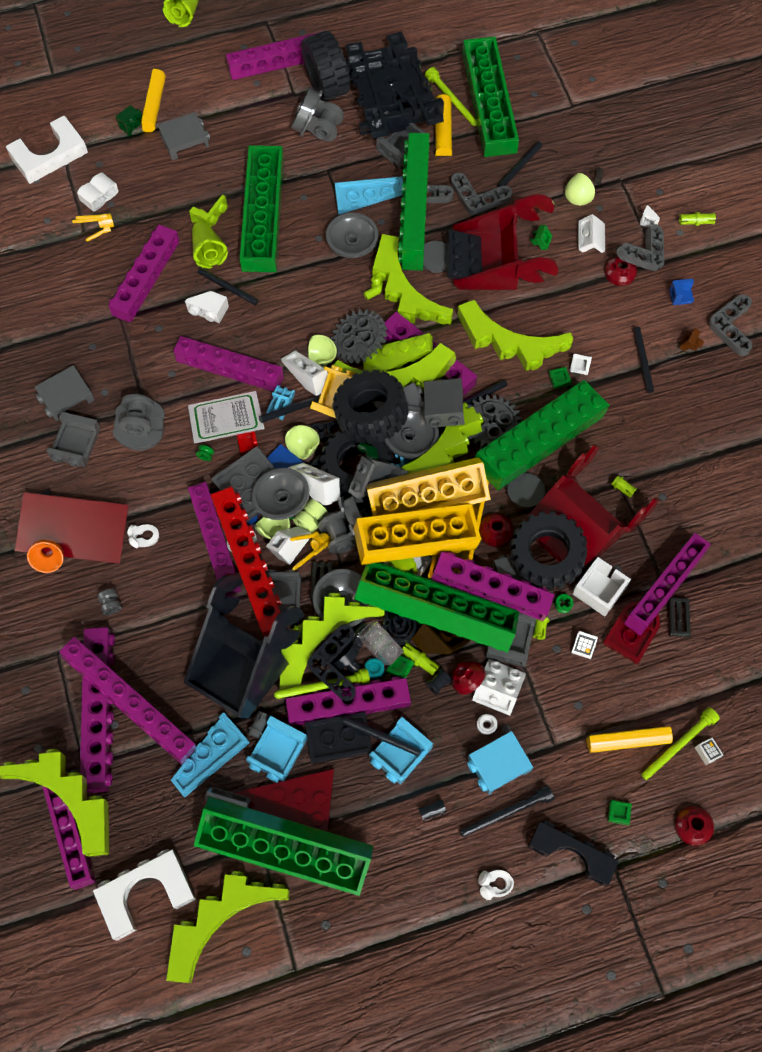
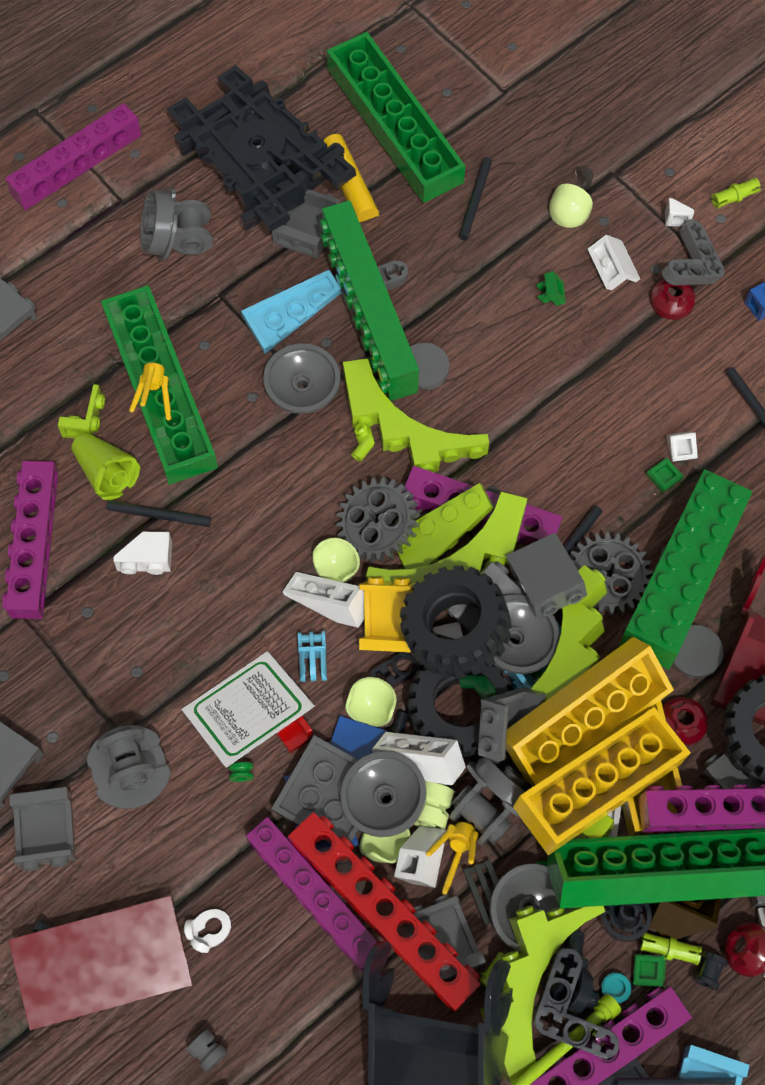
camera: 25 degrees left, 0 degrees up
(43, 562) = (84, 1030): orange piece -> none
(228, 364) = (214, 628): magenta brick -> none
(256, 201) = (151, 379): none -> yellow plant
(289, 409) = (332, 662): black bar -> none
(325, 65) = (158, 148): black tyre -> none
(380, 643) = (613, 951): clear brick -> none
(434, 77) = (304, 113): lime piece -> none
(463, 254) = (465, 354): black plate -> none
(475, 199) = (437, 266): dark grey beam -> none
(500, 249) = (495, 334): dark red piece -> none
(506, 343) = (539, 449): lime arch -> none

